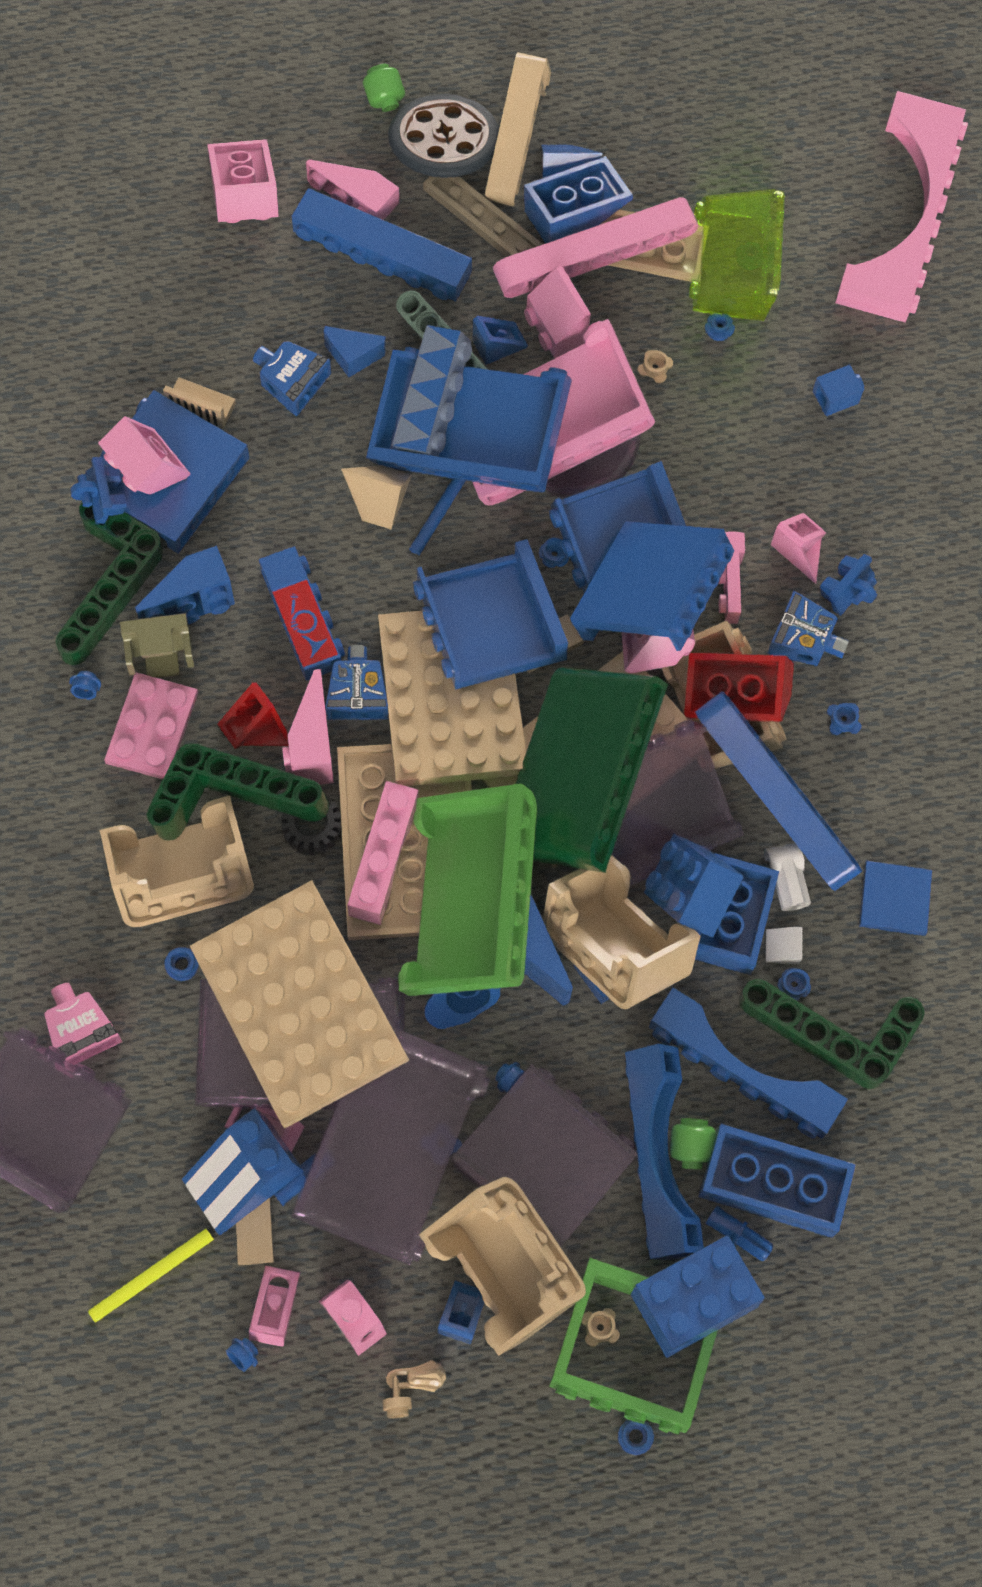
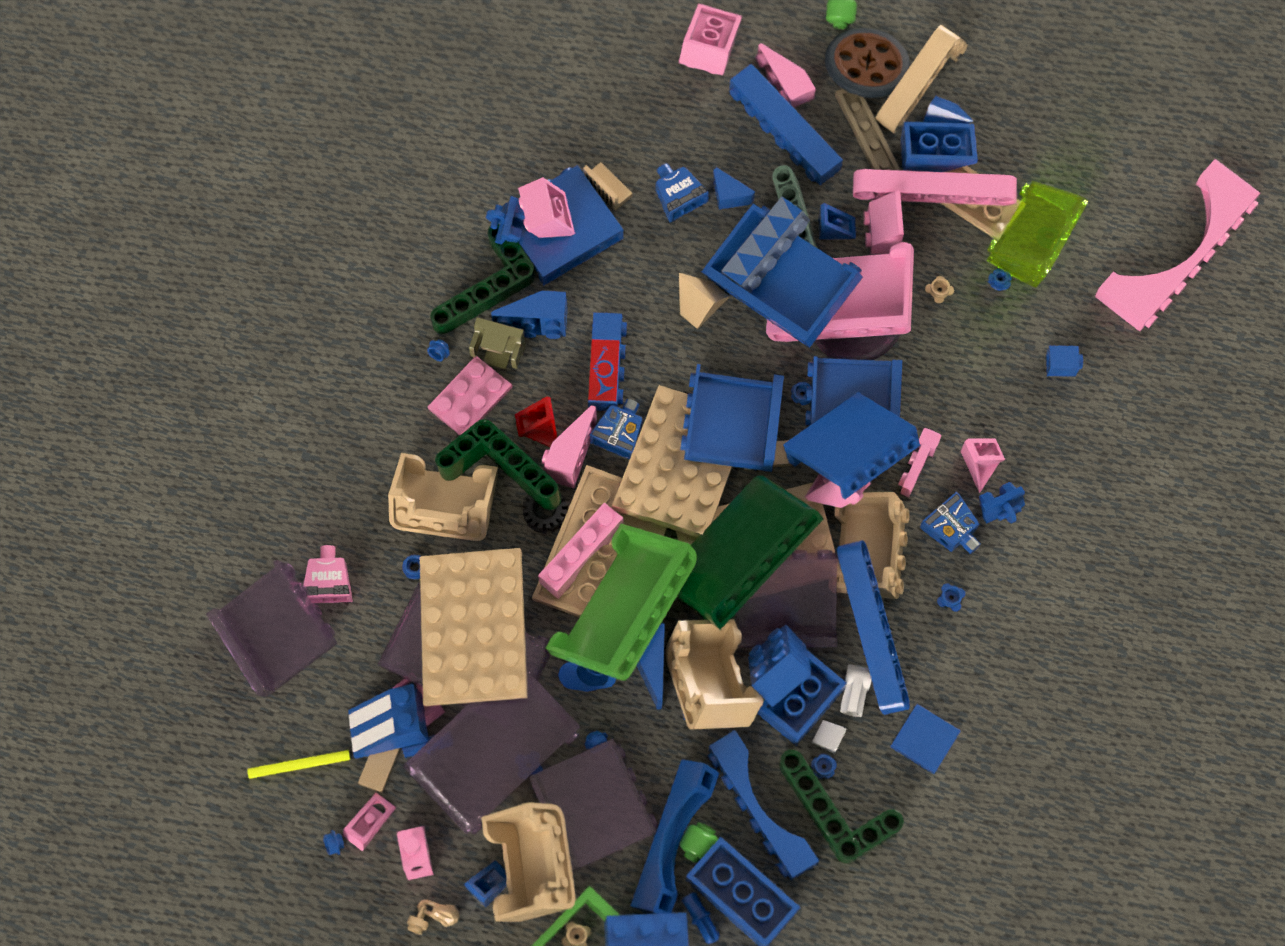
camera: 30 degrees right, 0 degrees up
(436, 516) = (732, 333): blue bar -> none
(754, 683) = (890, 545): red slope -> none

